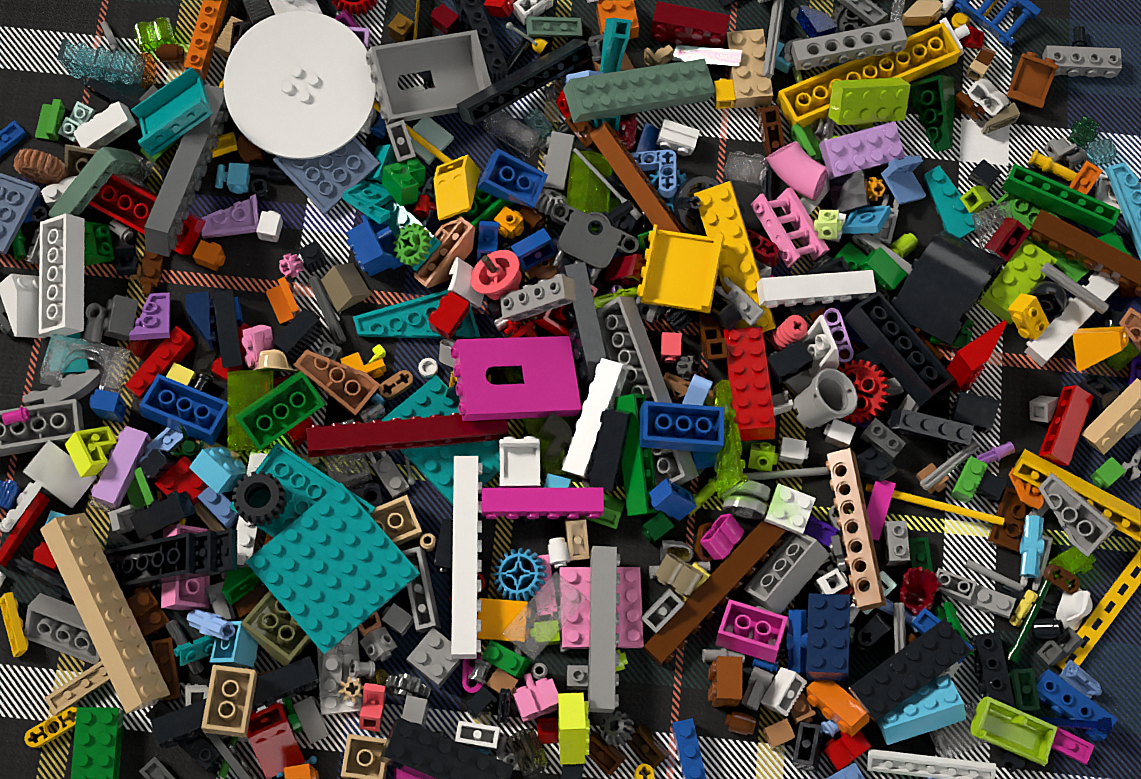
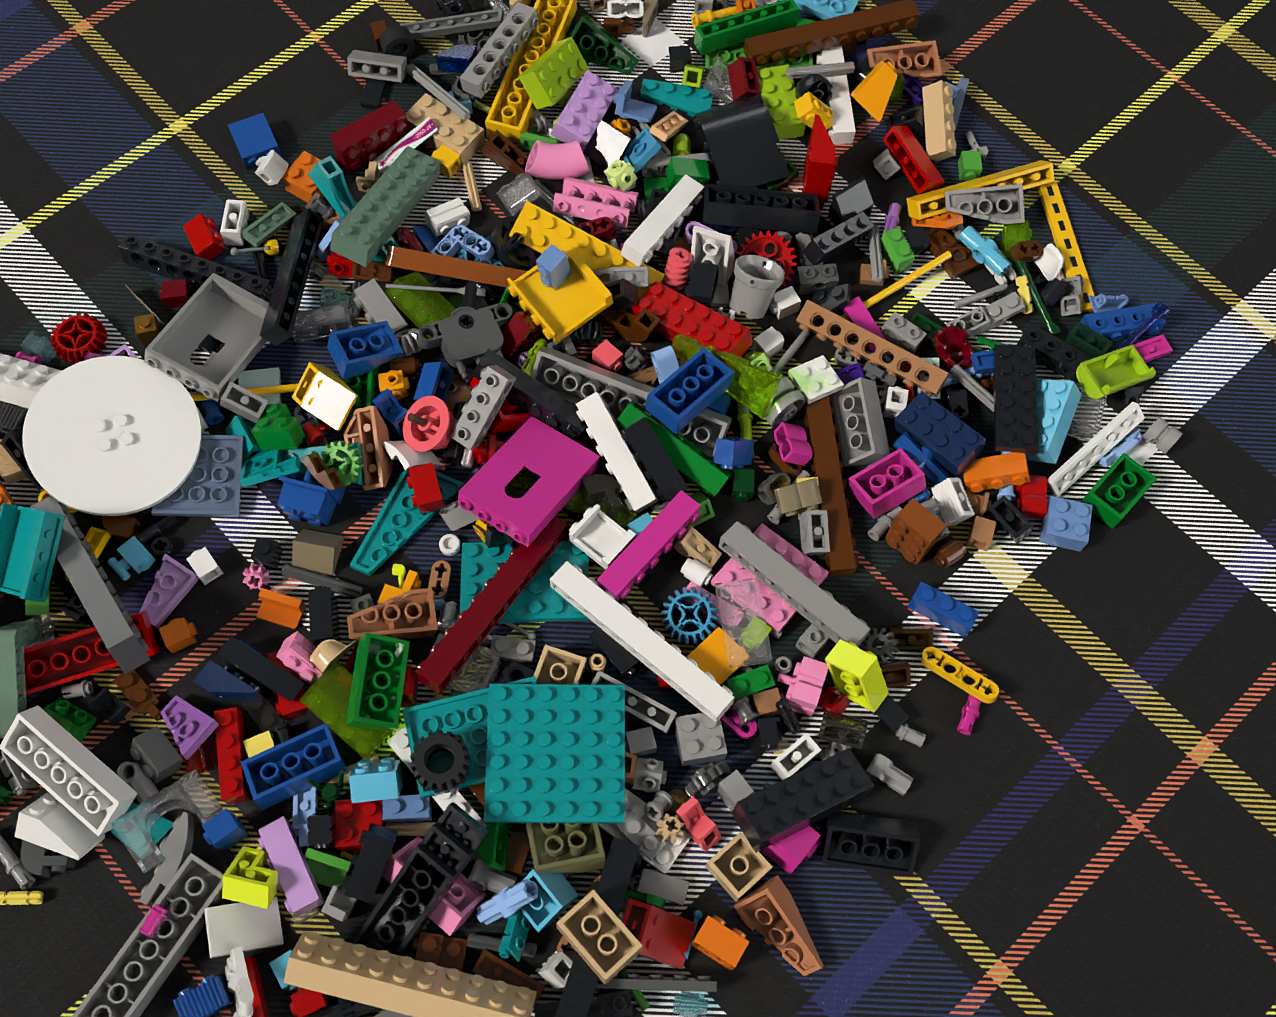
camera: 50 degrees left, 5 degrees down
(390, 246) = (327, 477): none -> reddish brown slope
(690, 247) = (553, 267): none -> medium blue brick
(721, 130) = (471, 187): none -> tan axle
(910, 221) = (668, 126): none -> light nougat plate

